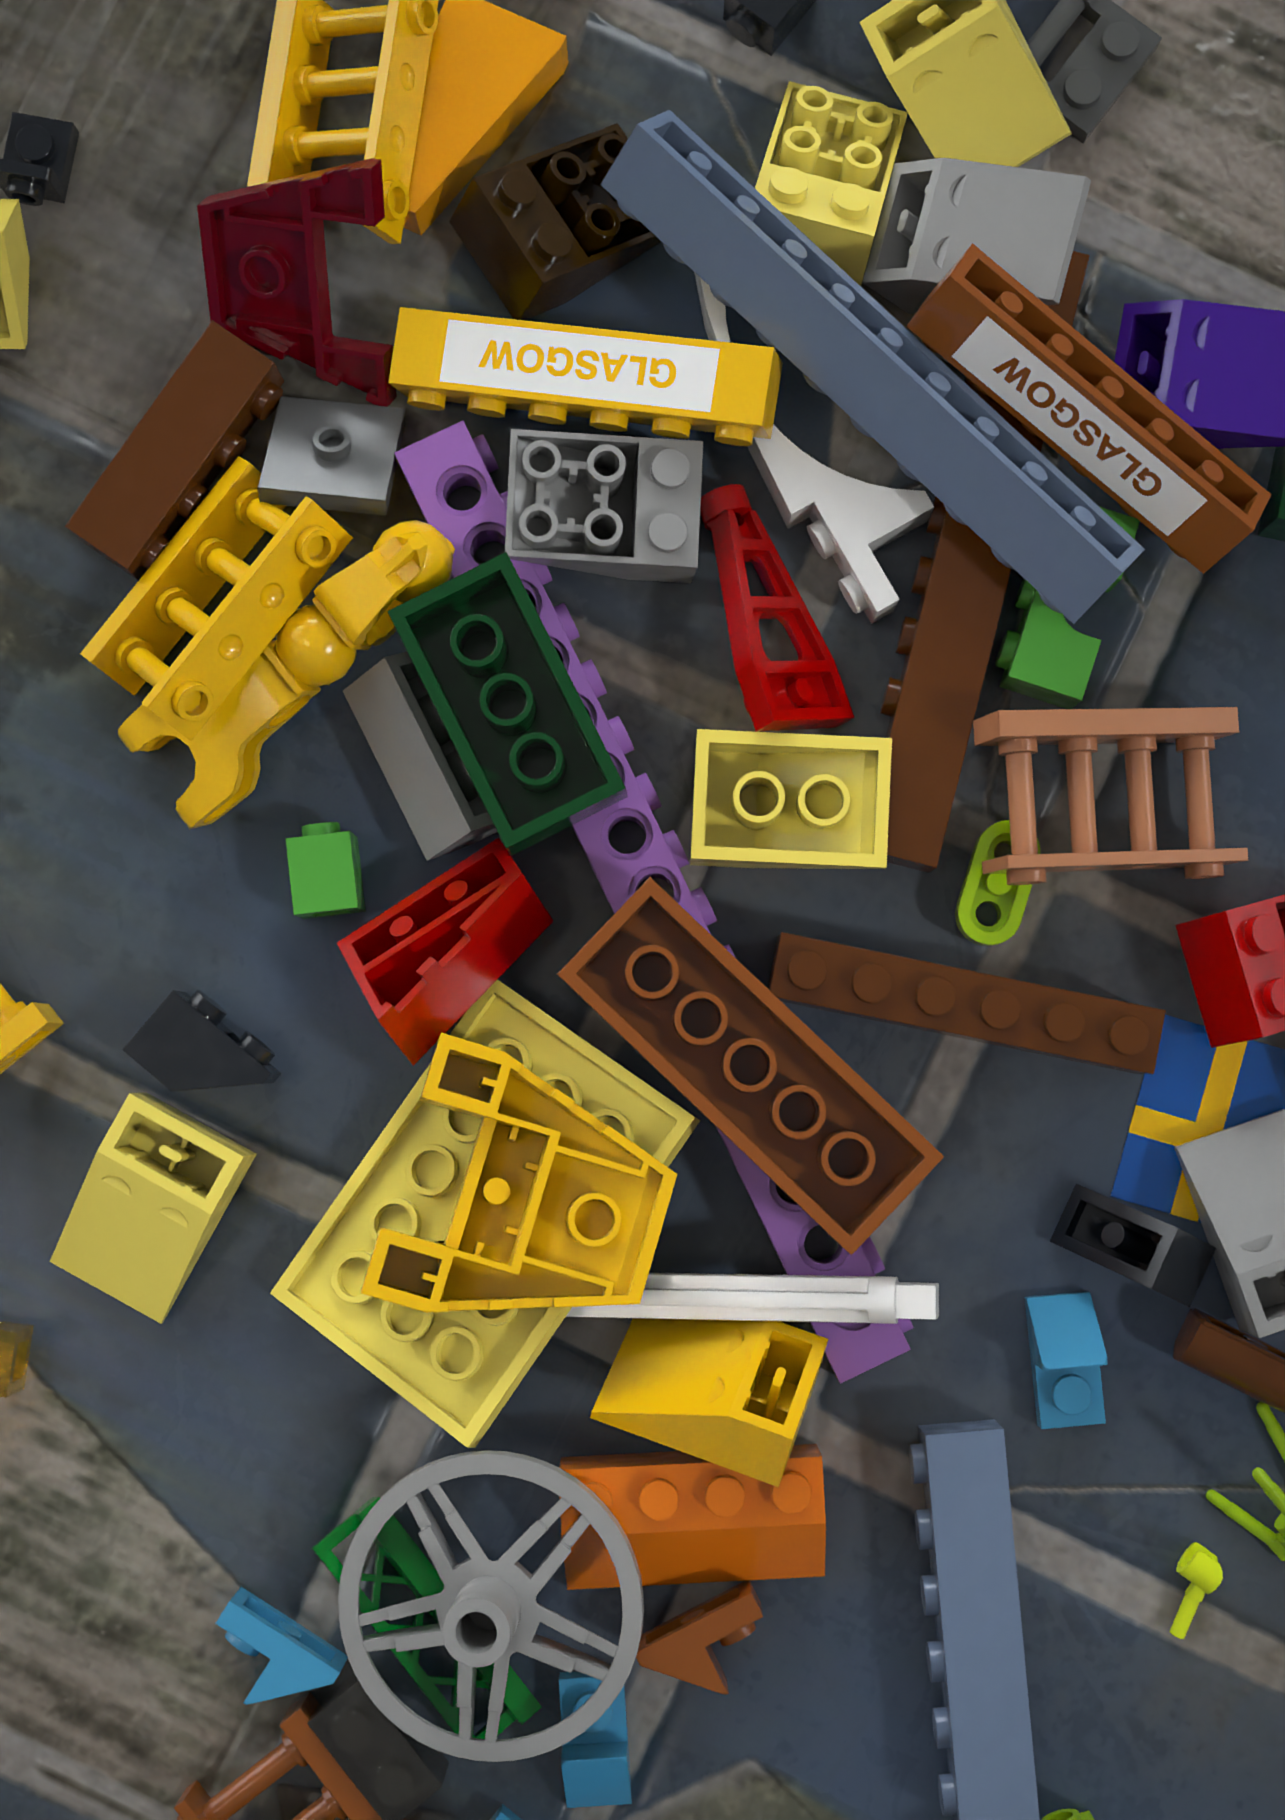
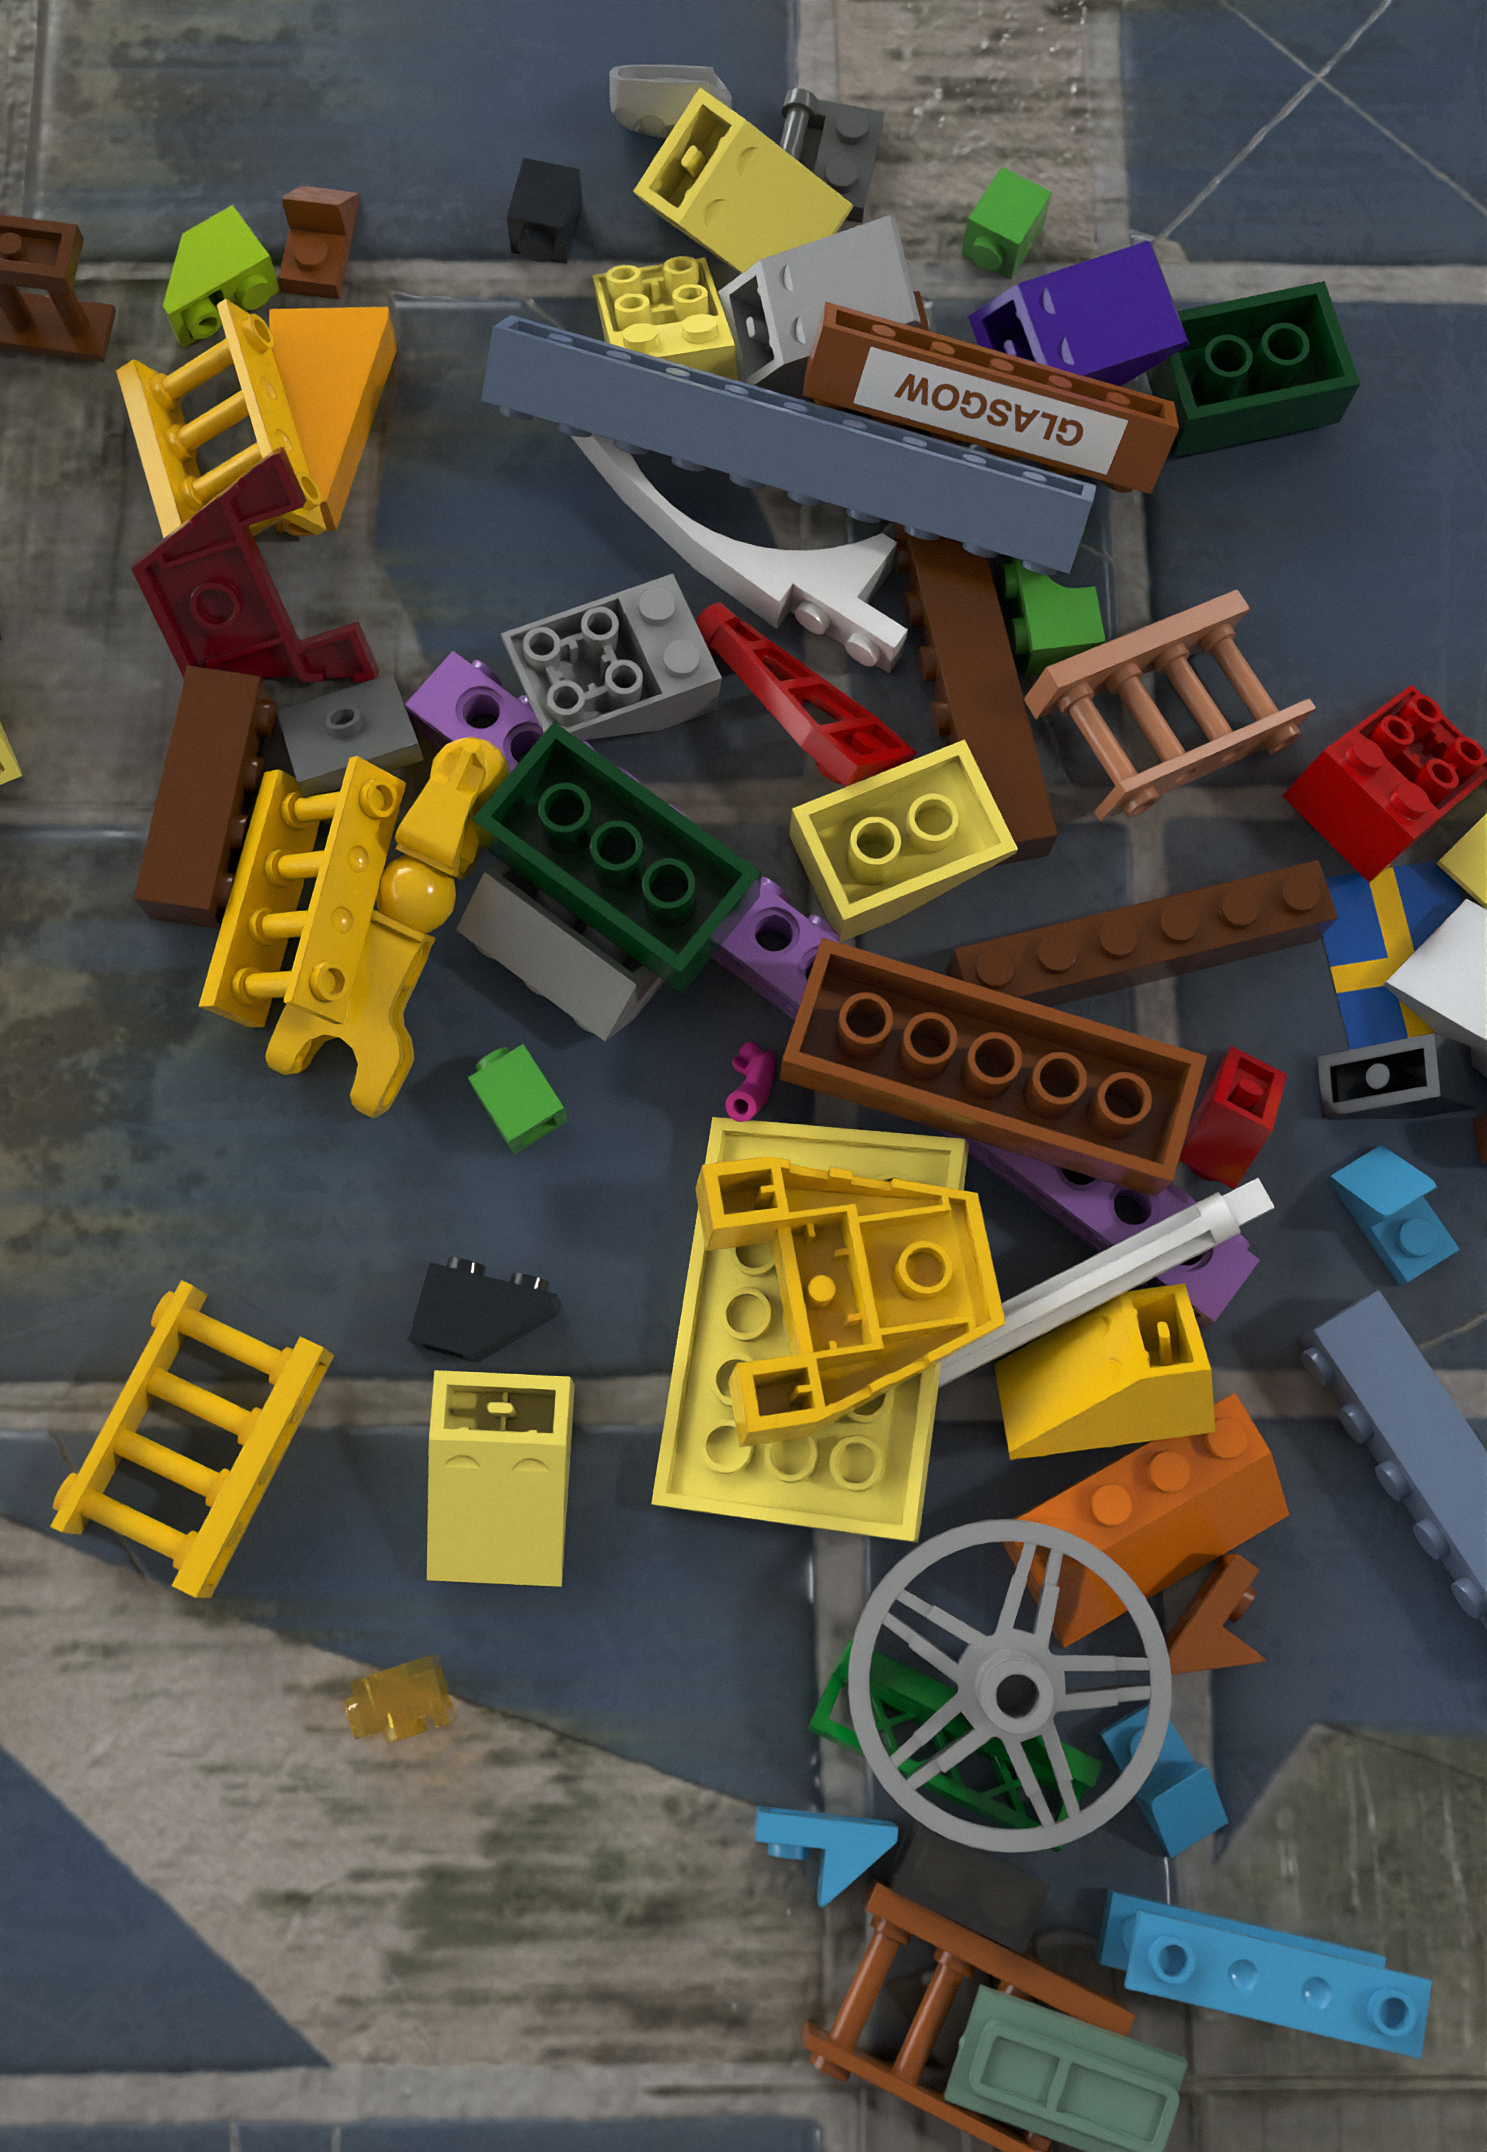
camera: 35 degrees left, 10 degrees down
(444, 946) = (659, 1104): red wedge -> none
(543, 967) = (755, 1090): none -> dark pink arm
(549, 225) = (451, 465): dark brown slope -> none
(586, 374) = (541, 565): yellow brick -> none
(964, 1204) = (1233, 1118): none -> red slope
(991, 889) = (1111, 838): lime plate -> none
(1218, 216) = (1005, 223): none -> bright green brick

